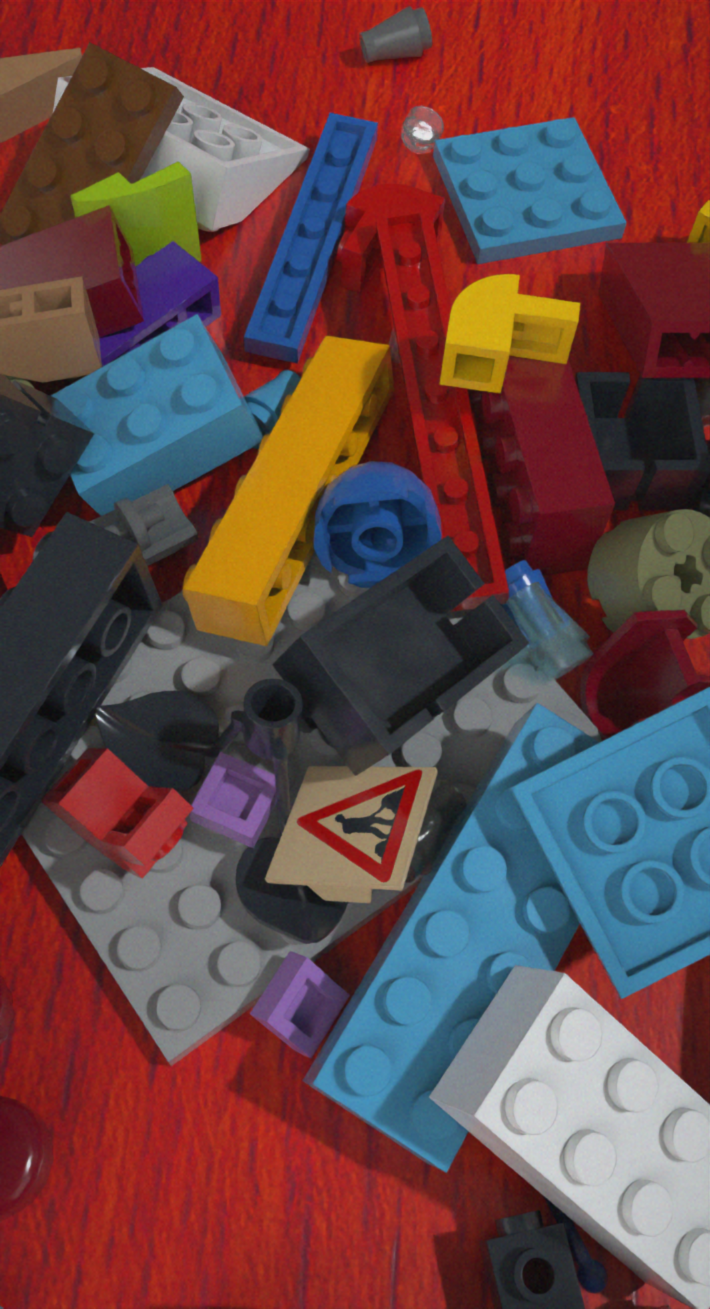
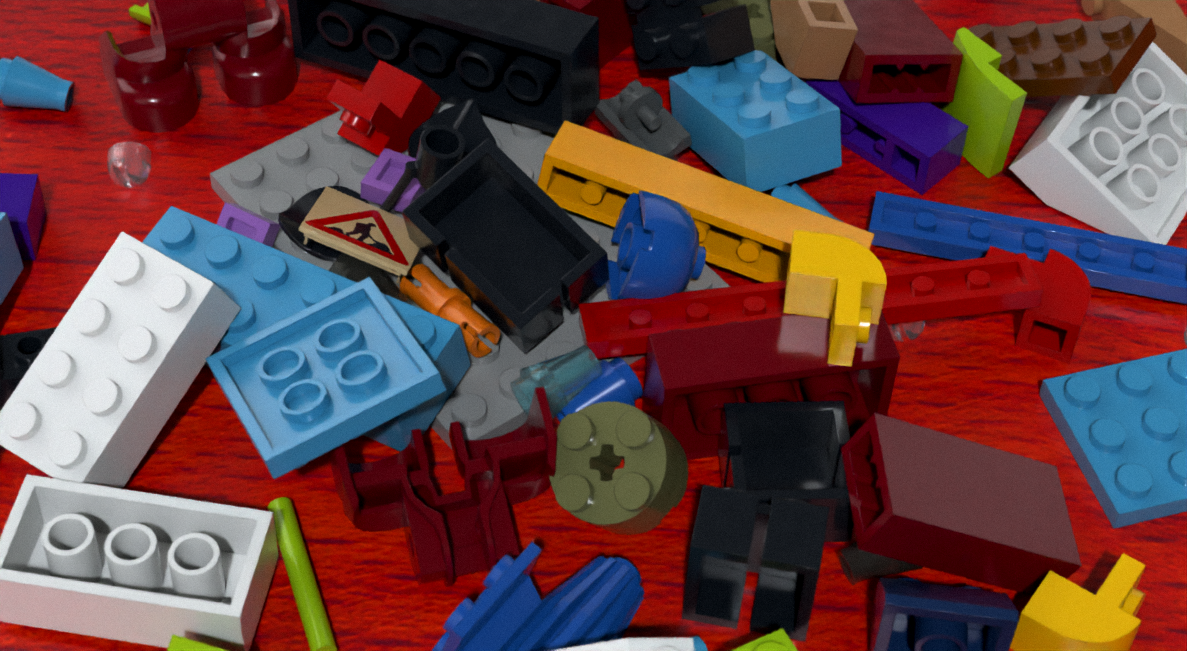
camera: 90 degrees right, 15 degrees down
(145, 1184) = (129, 163): none -> clear hinge
(453, 736) = (451, 305): none -> orange pin

